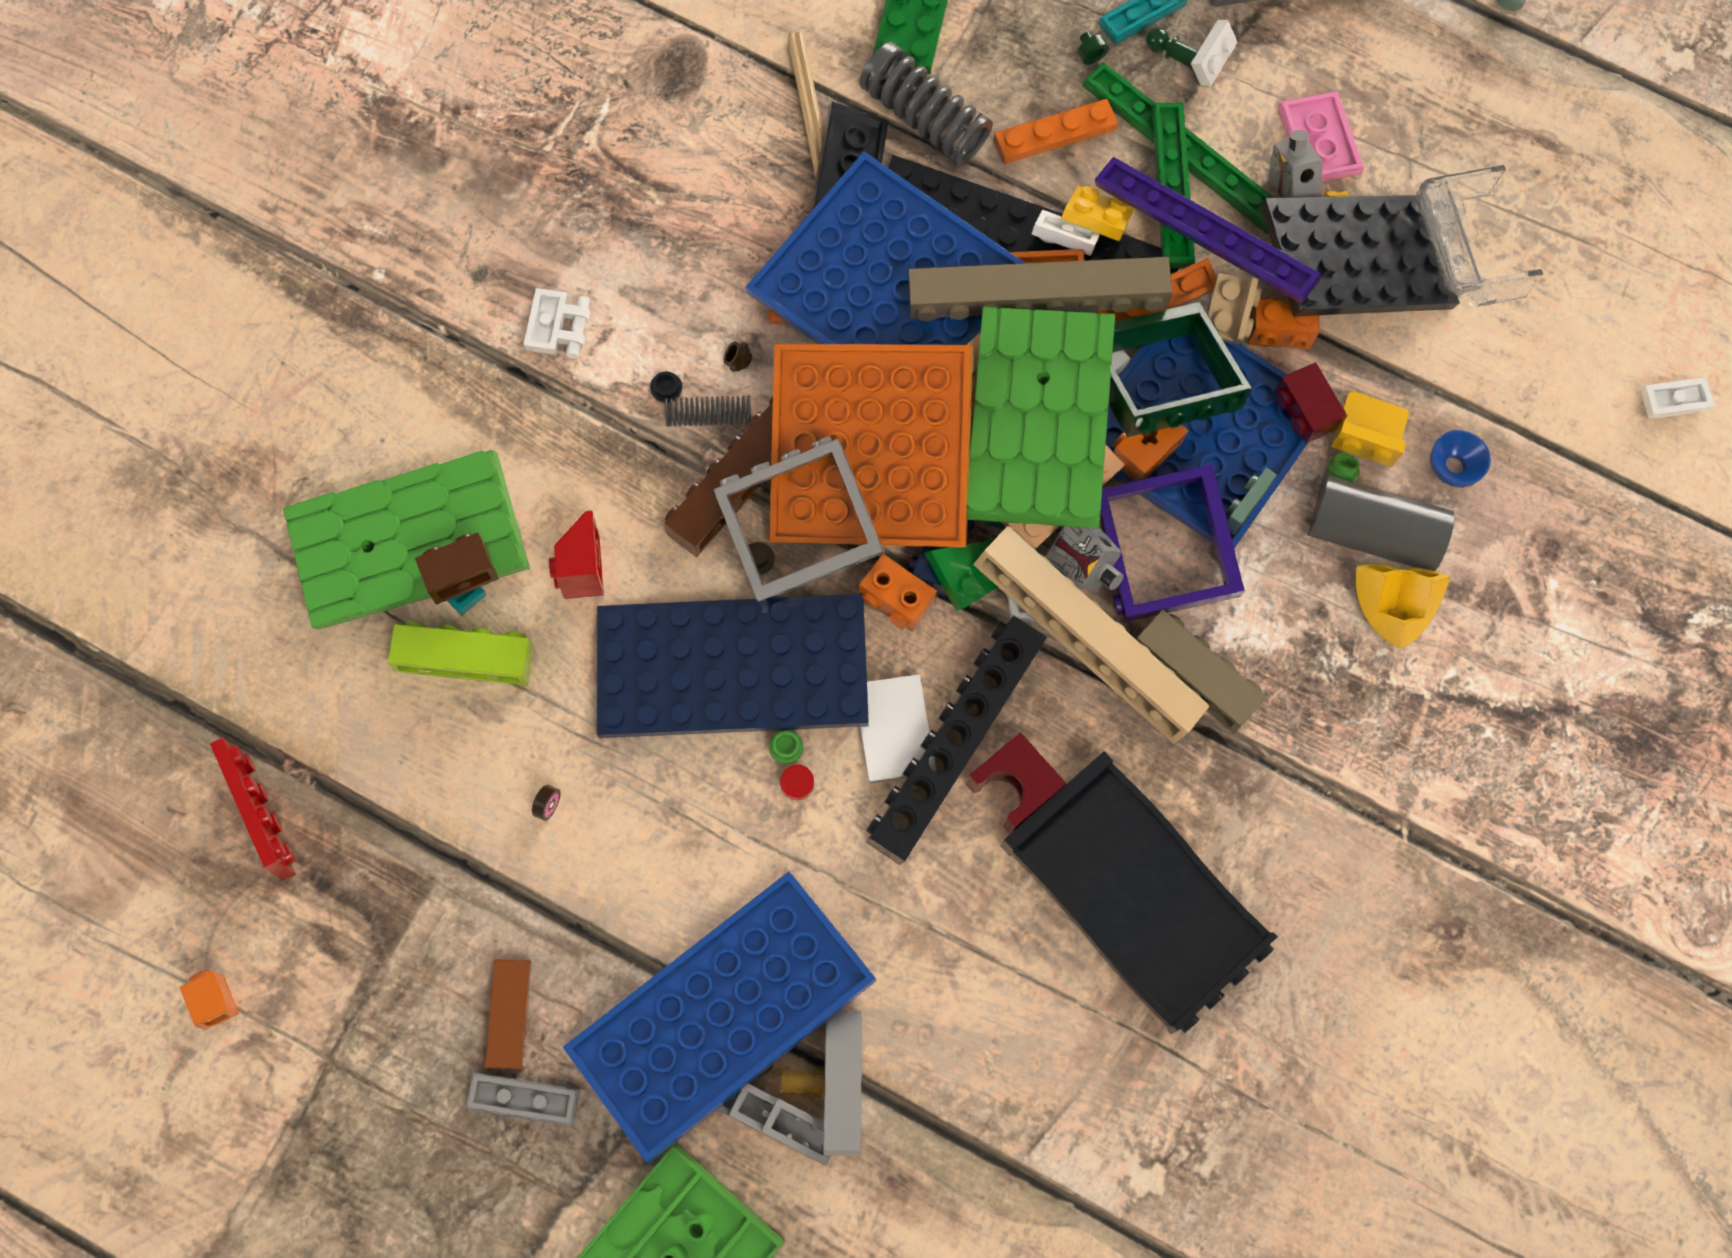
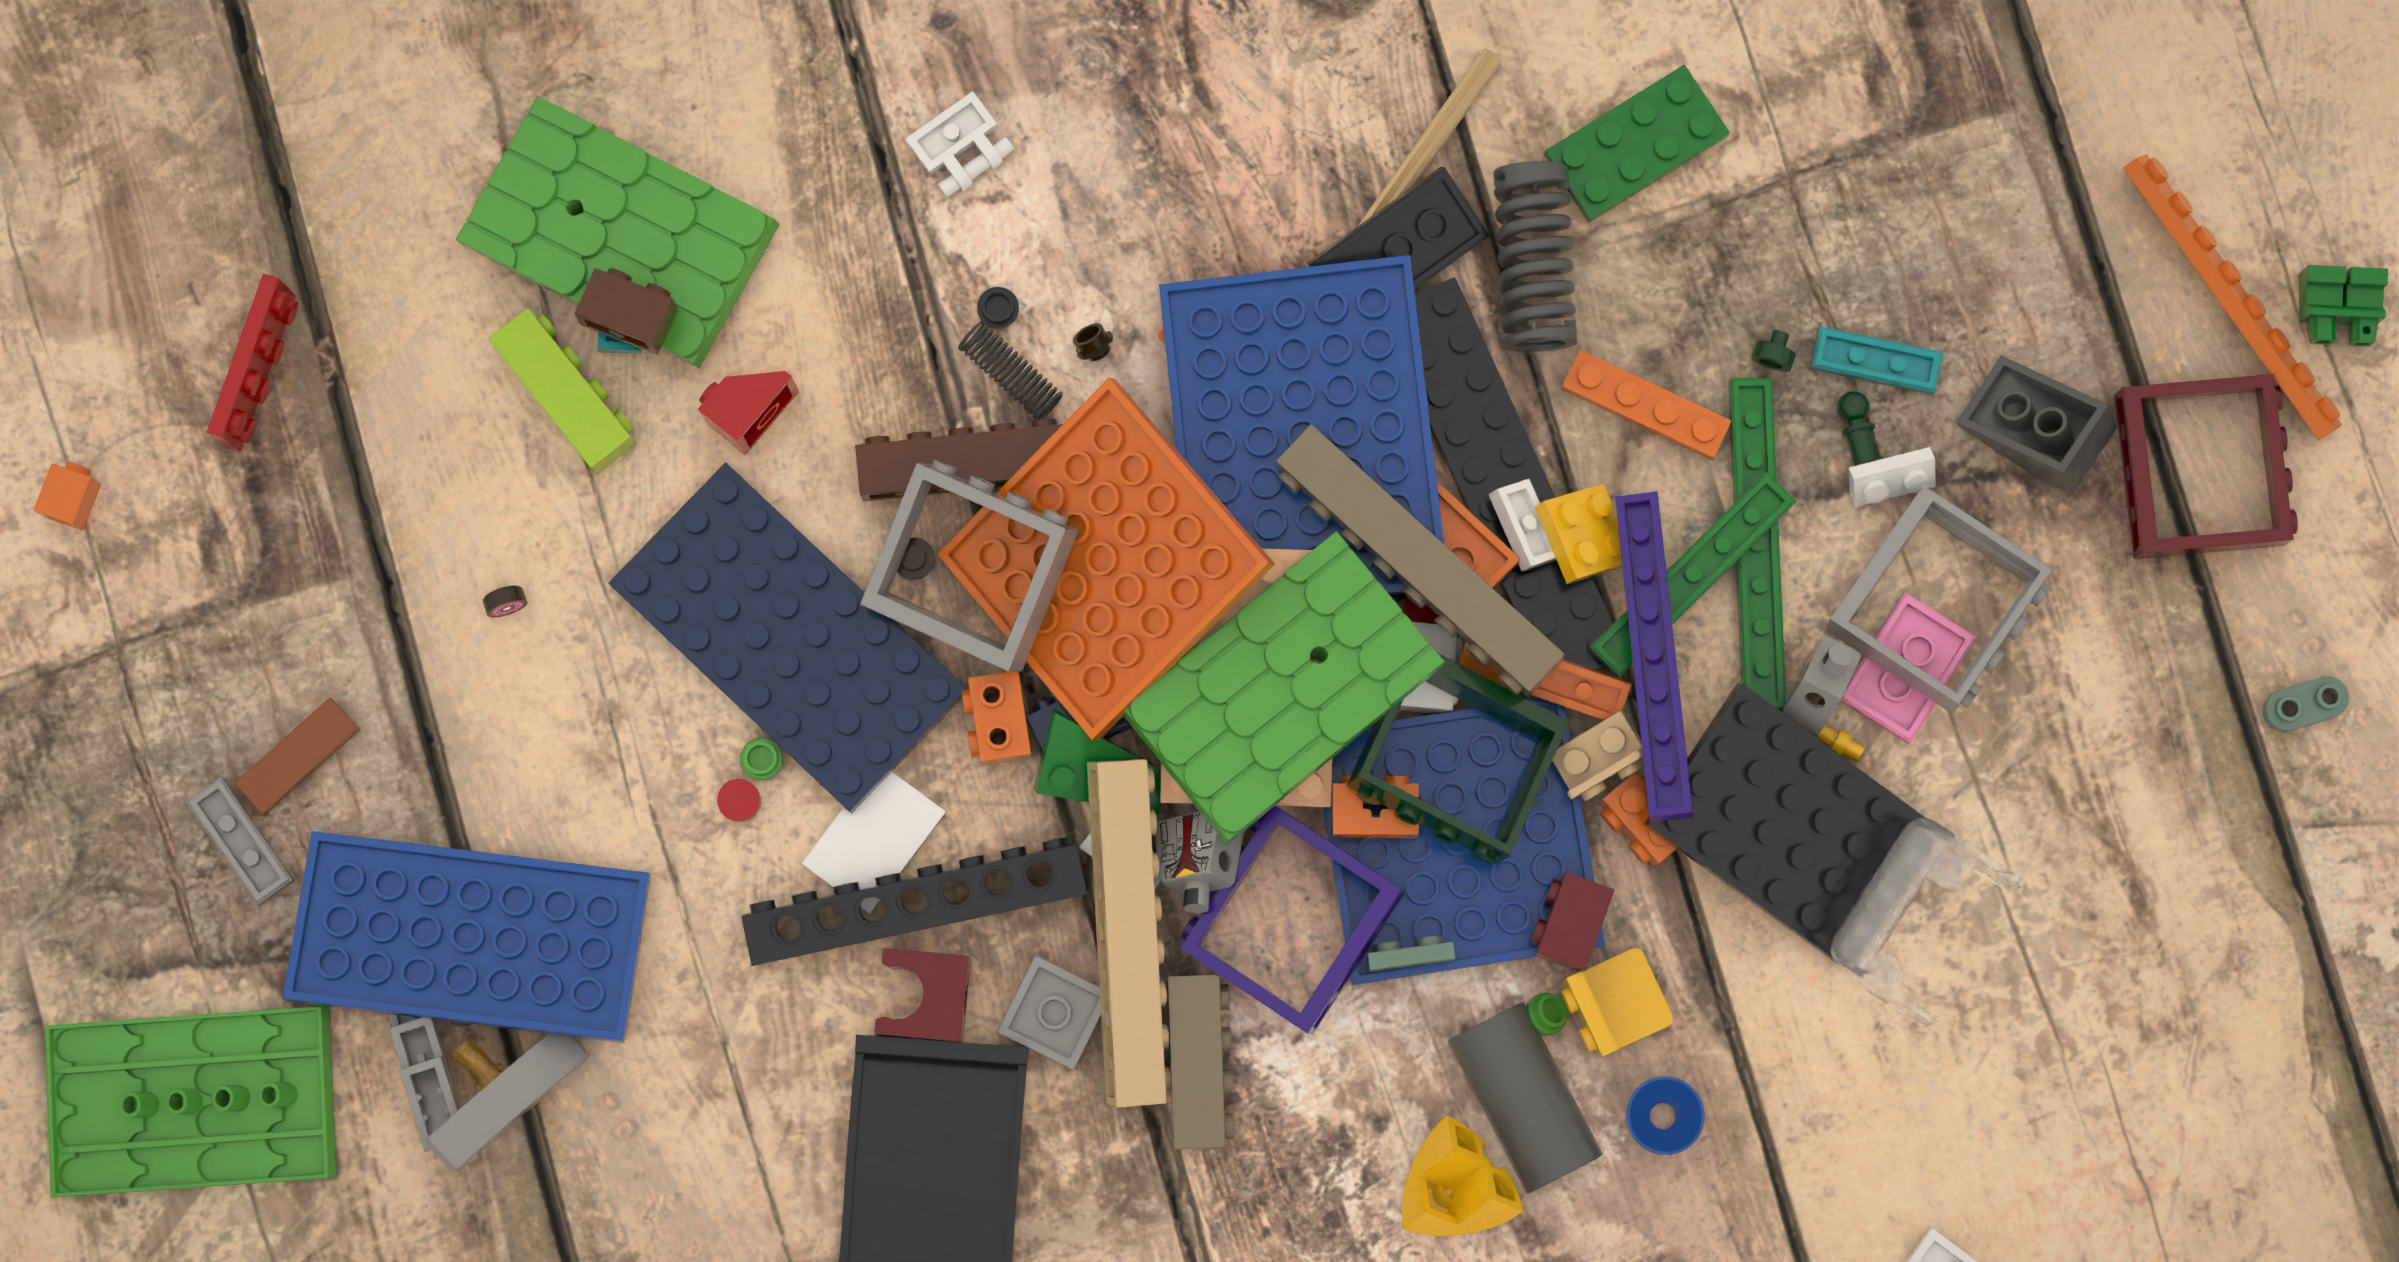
camera: 50 degrees right, 10 degrees up
(1094, 723) = (1053, 1013): none -> light grey plate
(1298, 39) = (1982, 539): none -> light grey window

